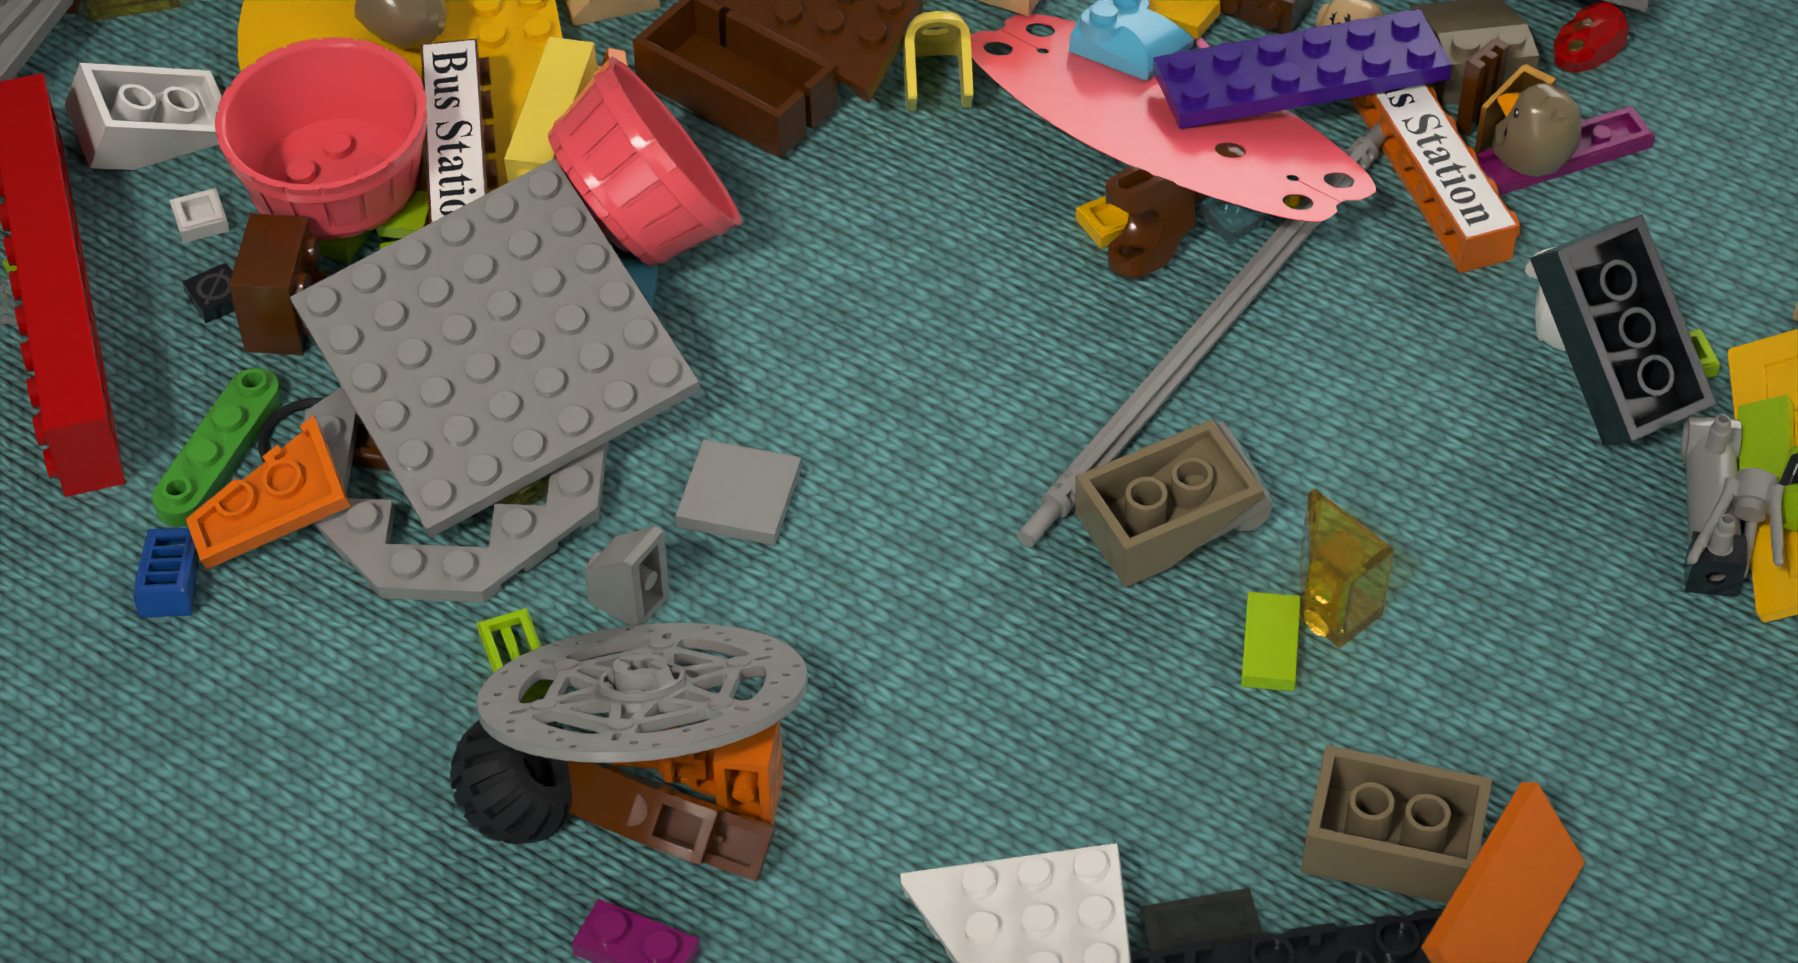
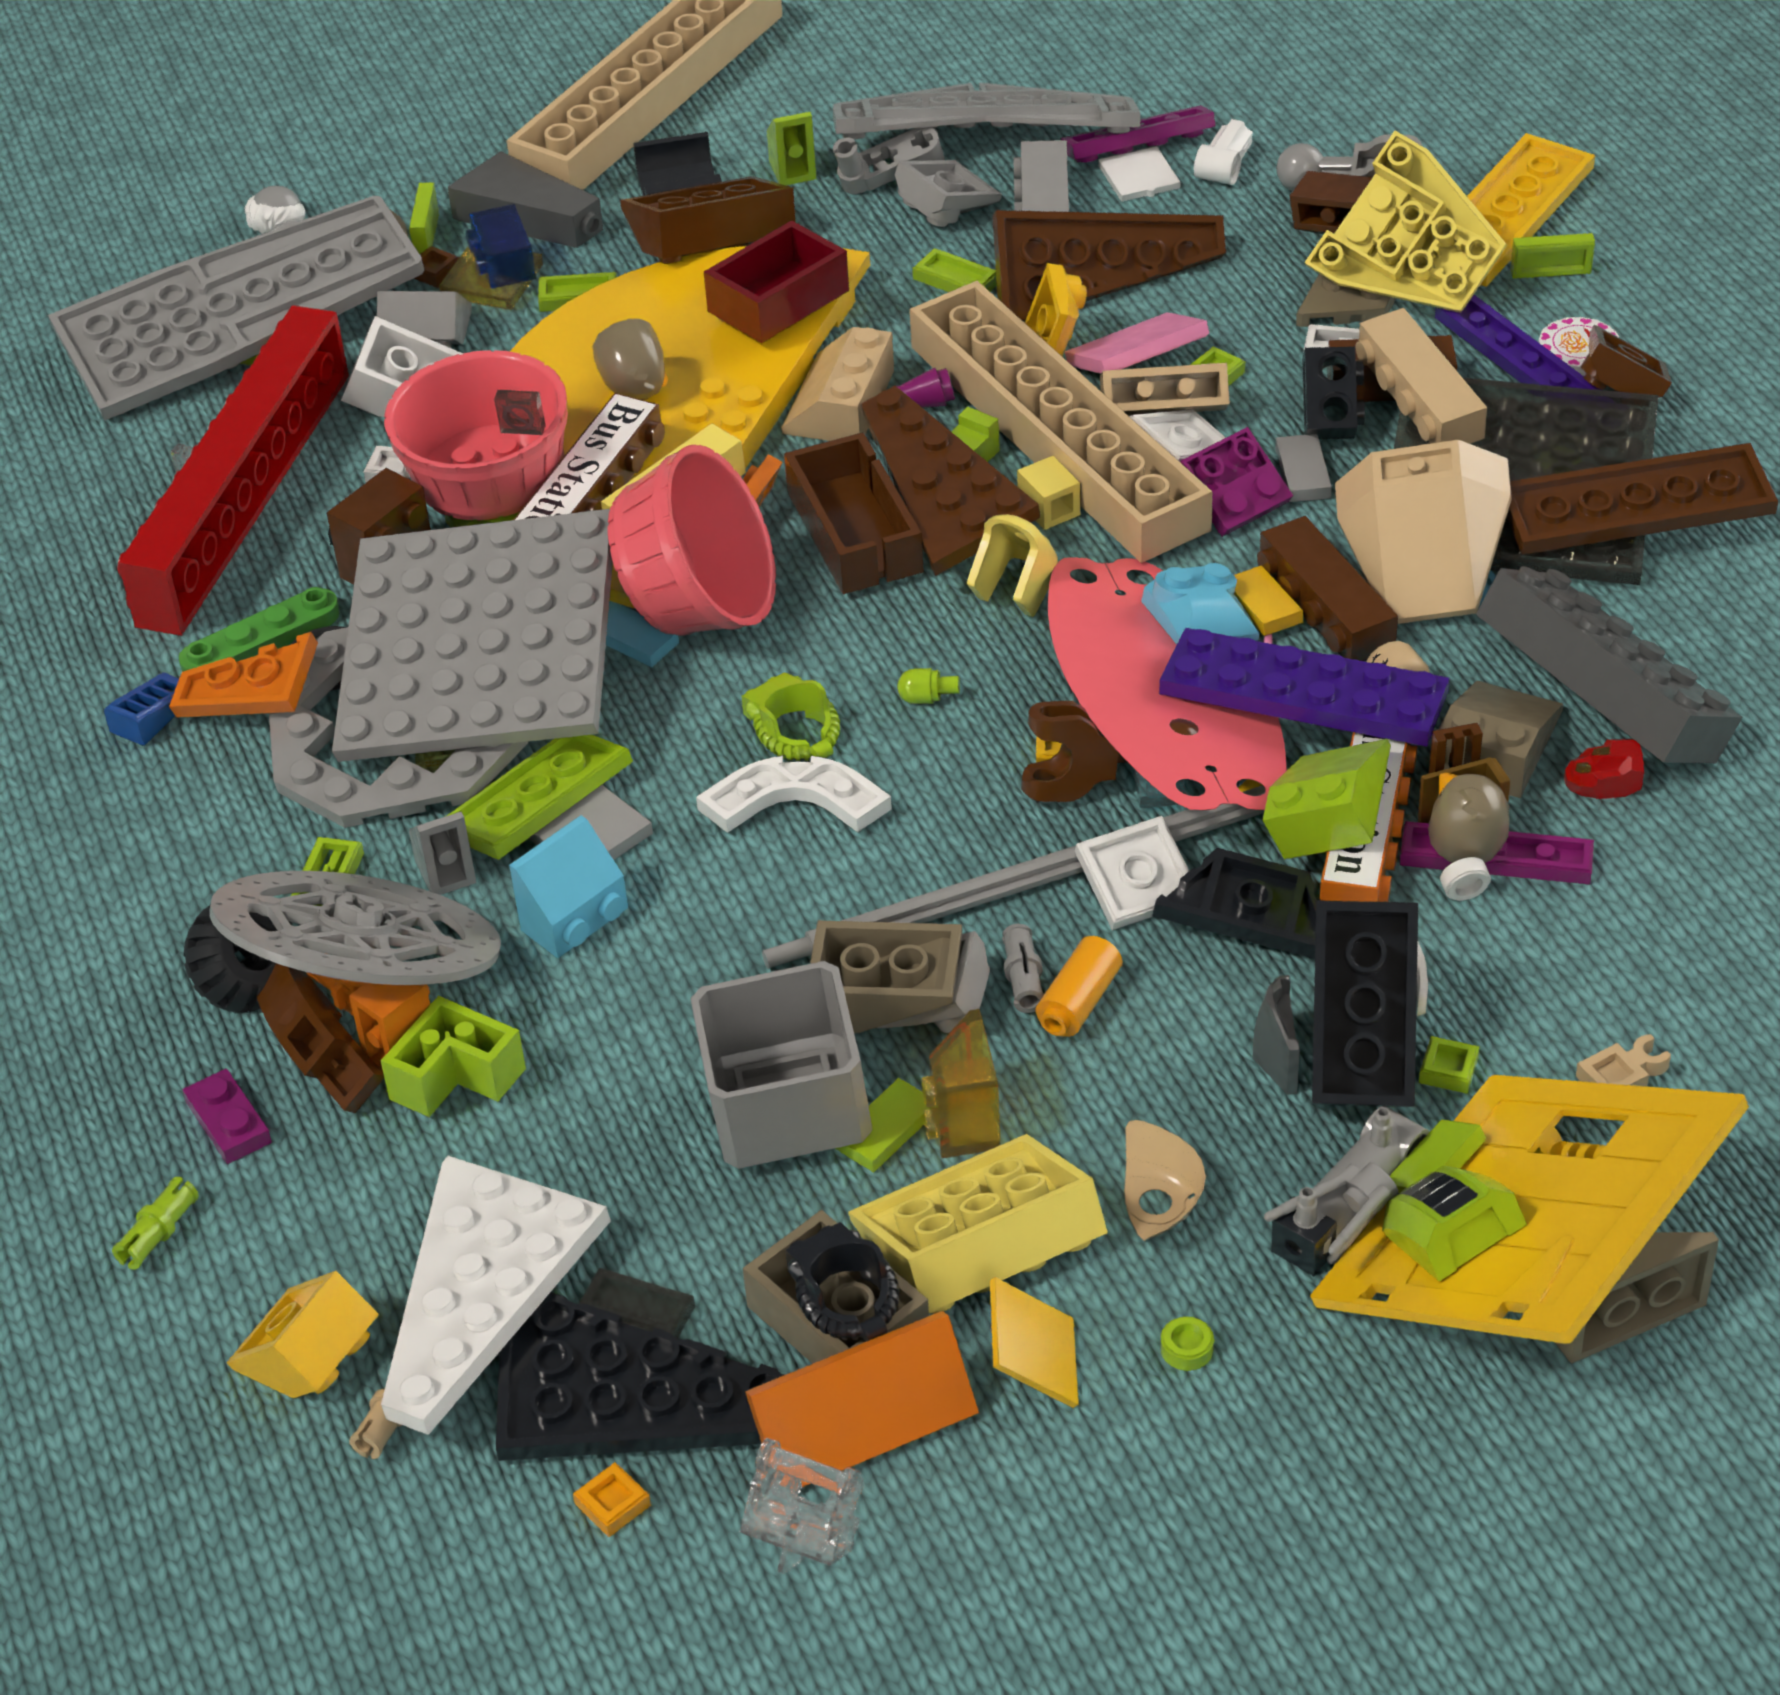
camera: 35 degrees right, 5 degrees down
(113, 41) = (432, 314): none -> light grey slope
(389, 96) = (520, 412): none -> clear smoke tile
(665, 475) = (539, 791): none -> lime tile
(797, 559) = (567, 888): none -> medium azure slope
(830, 763) = (449, 1049): none -> lime brick
(854, 272) = (787, 695): none -> lime piece
(918, 348) = (771, 781): none -> white plate
(940, 212) = (926, 685): none -> lime cylinder
(1180, 594) = (781, 1064): none -> light grey plate
(1265, 438) = (1022, 967): none -> light grey pin
(1288, 304) = (1132, 869): none -> white tile
(1332, 431) = (1078, 986): none -> light orange brick
(1398, 769) = (837, 1251): none -> black piece
(1411, 287) = (1246, 901): none -> black wing
(1417, 159) = (1328, 800): none -> lime slope
(1440, 679) = (983, 1220): none -> light yellow slope
(1546, 399) = (1274, 1036): none -> flat silver slope
(1556, 555) = (1162, 1163): none -> tan piece
(1564, 186) = (1465, 878): none -> white tile
(1588, 776) = (1033, 1342): none -> yellow piece
(1696, 708) = (1187, 1343): none -> lime tile

